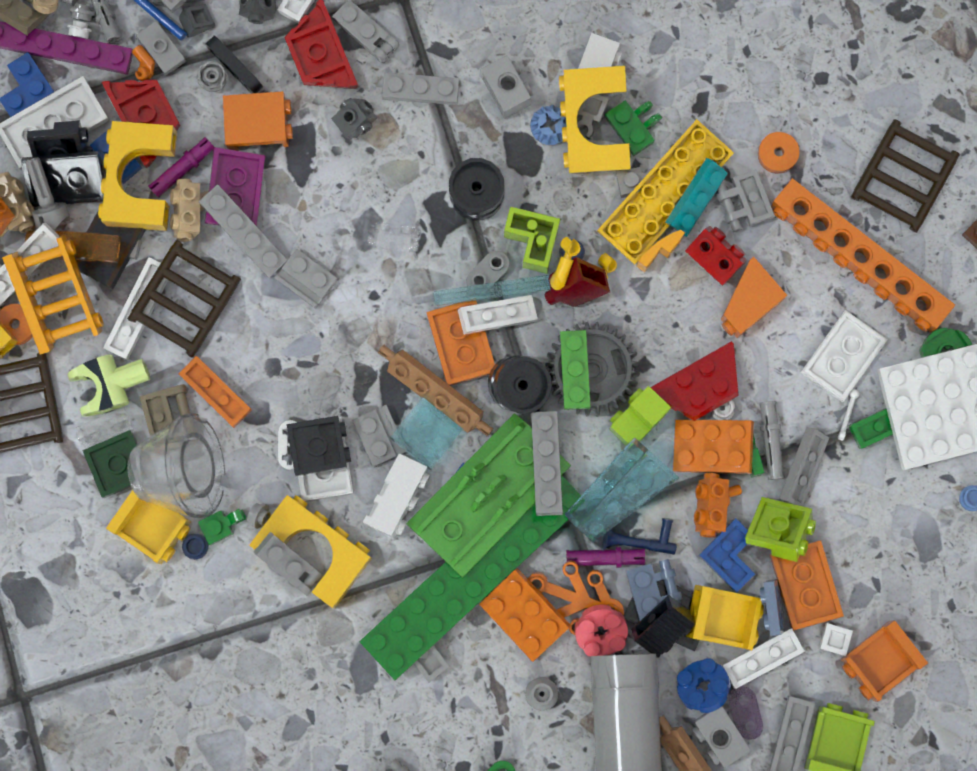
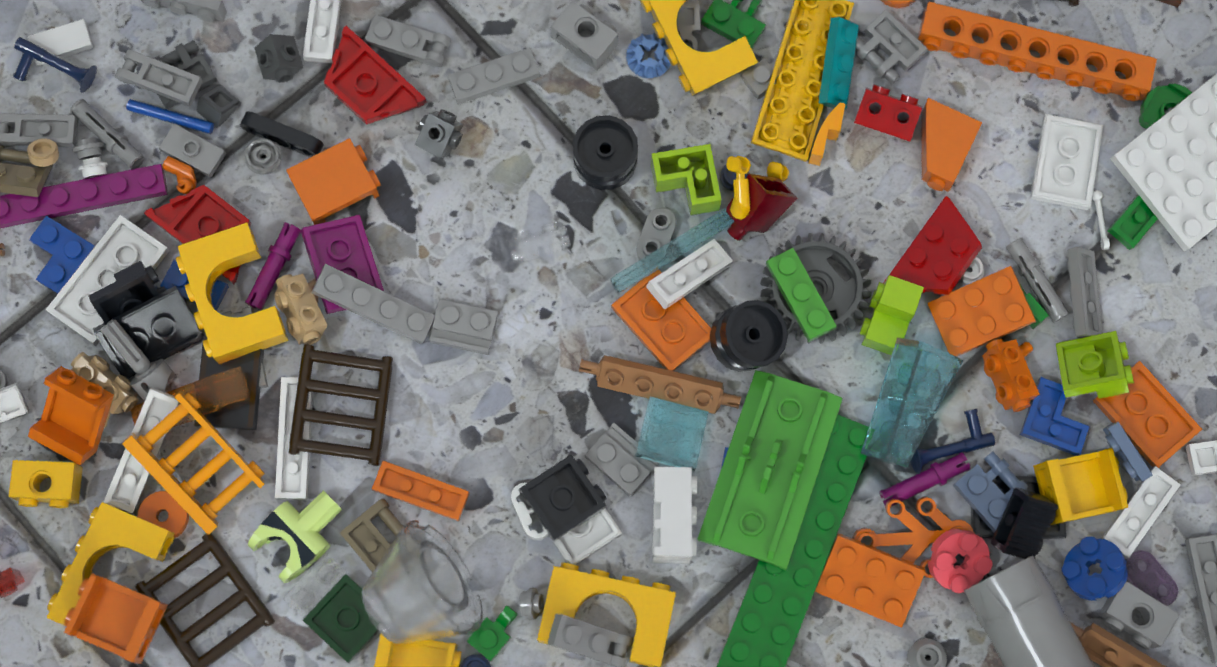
camera: 30 degrees left, 5 degrees down
(546, 463) = (819, 406): light grey plate -> none

